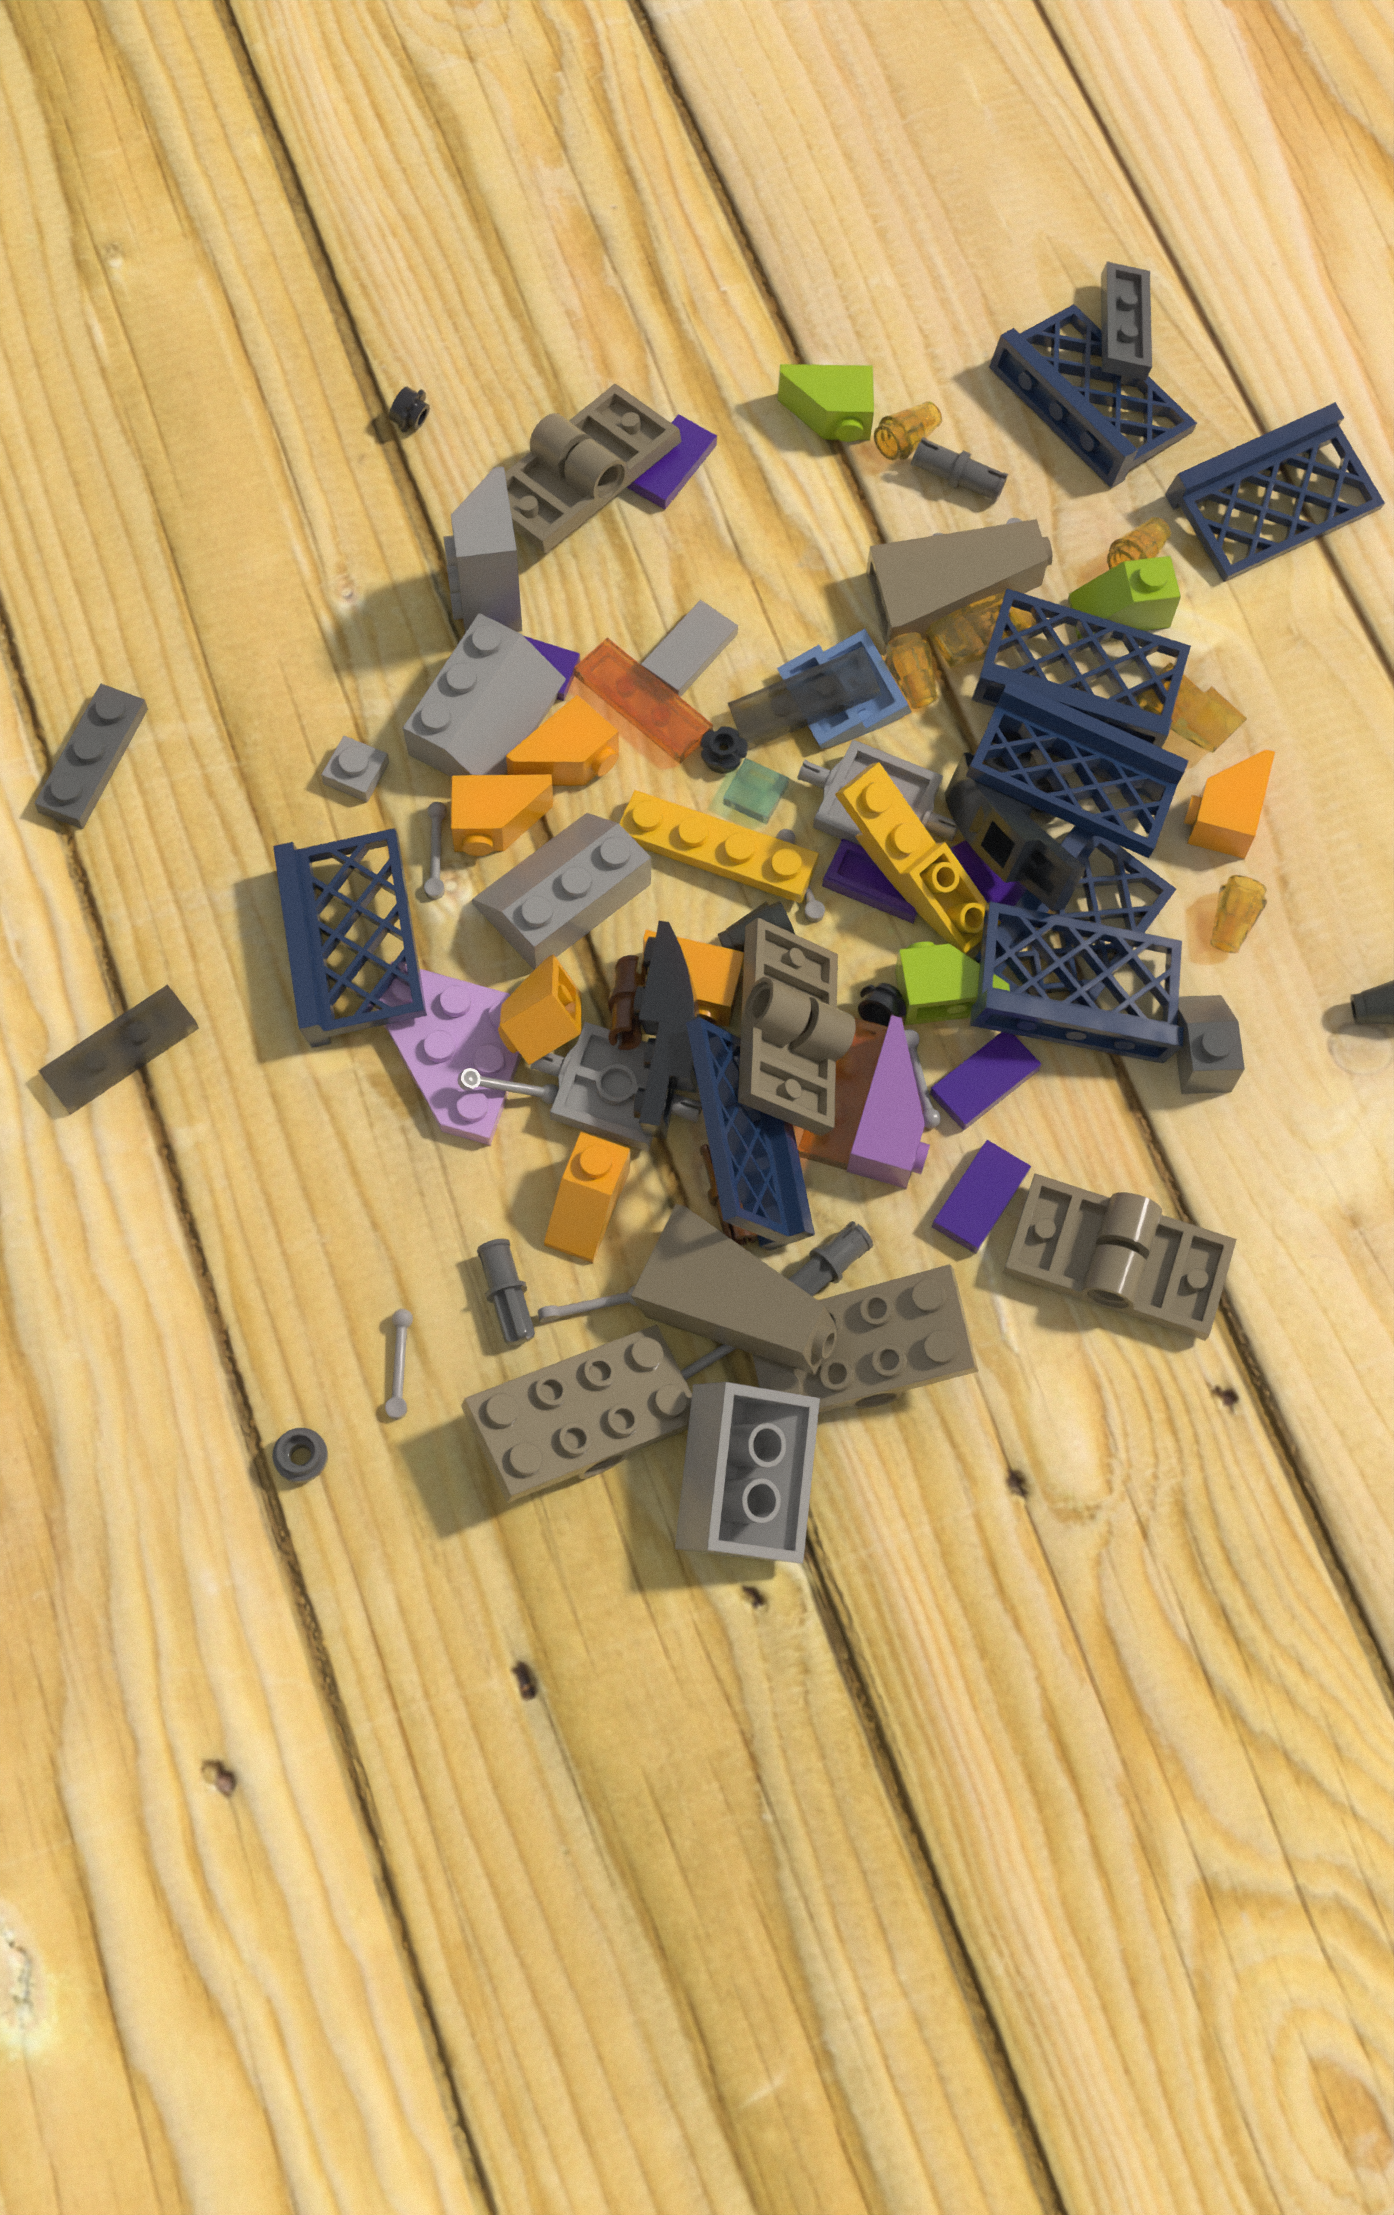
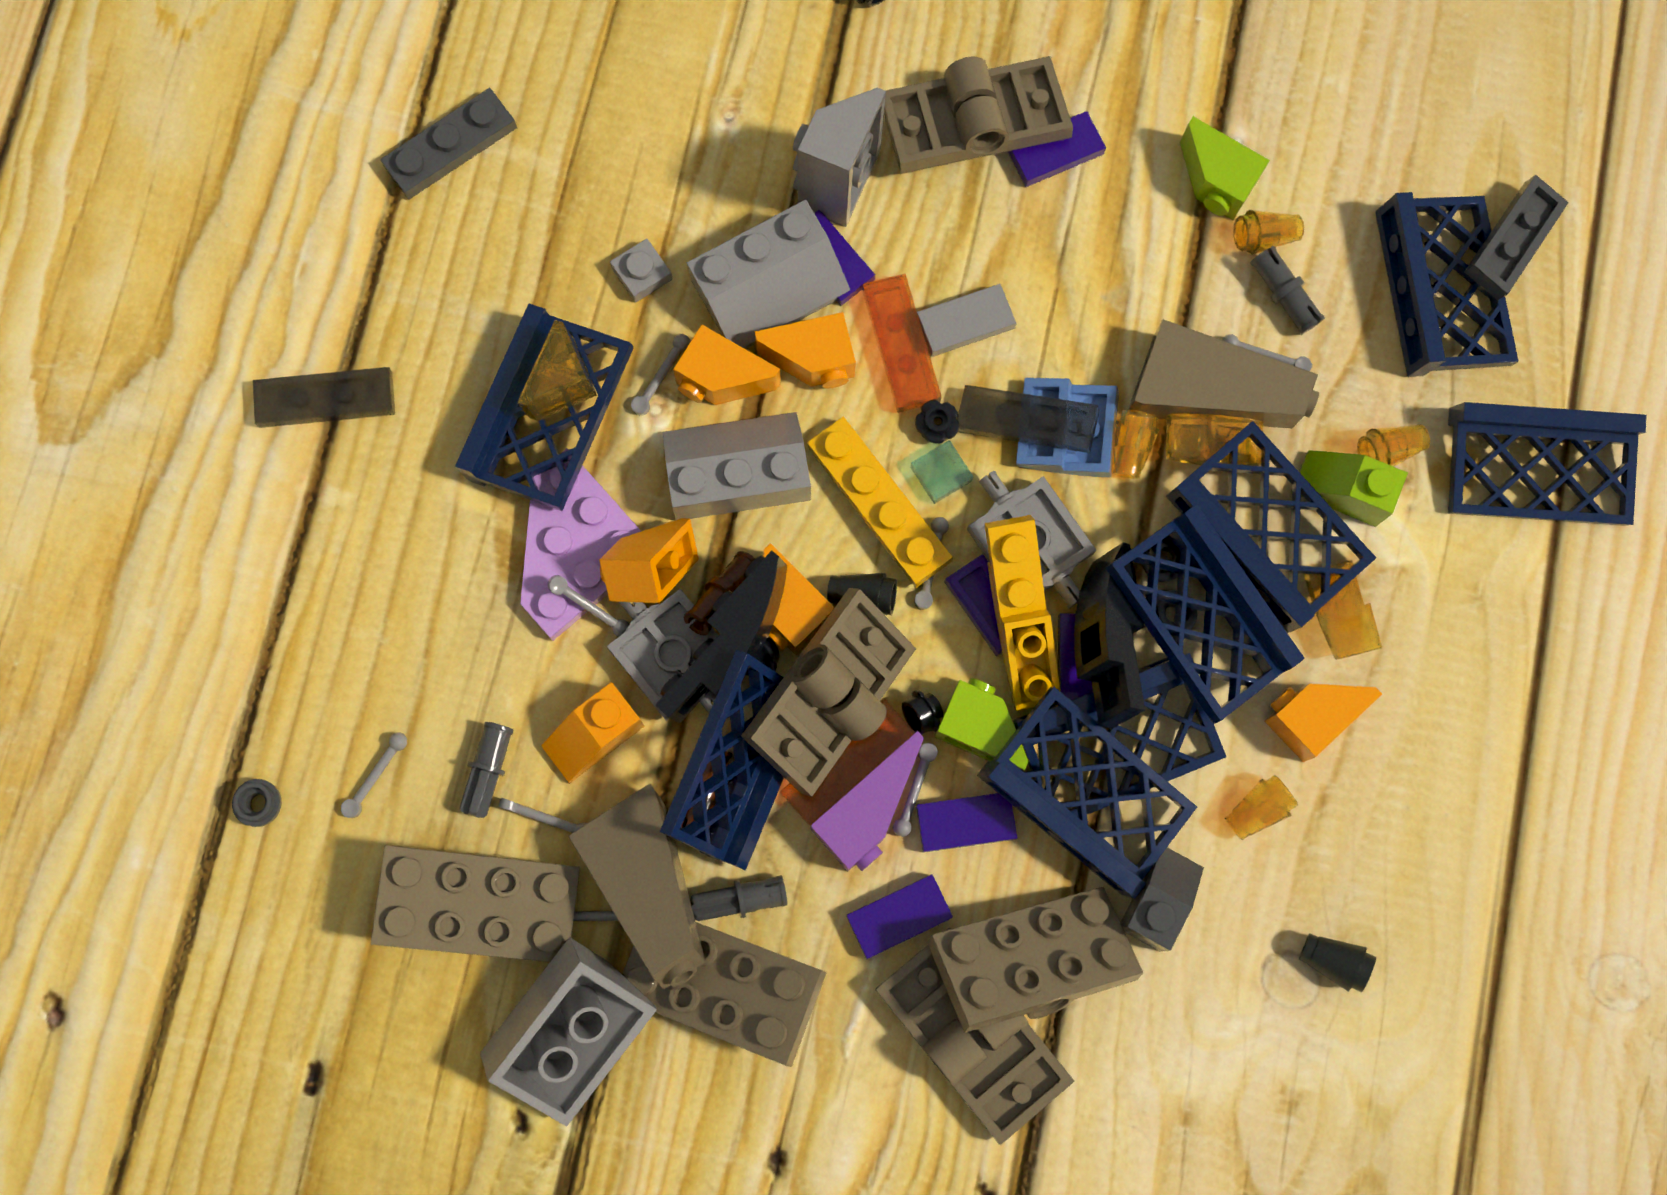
camera: 30 degrees right, 10 degrees up
(351, 889) = (557, 377): none -> clear yellow slope
(1130, 1150) = (1034, 959): none -> dark tan plate

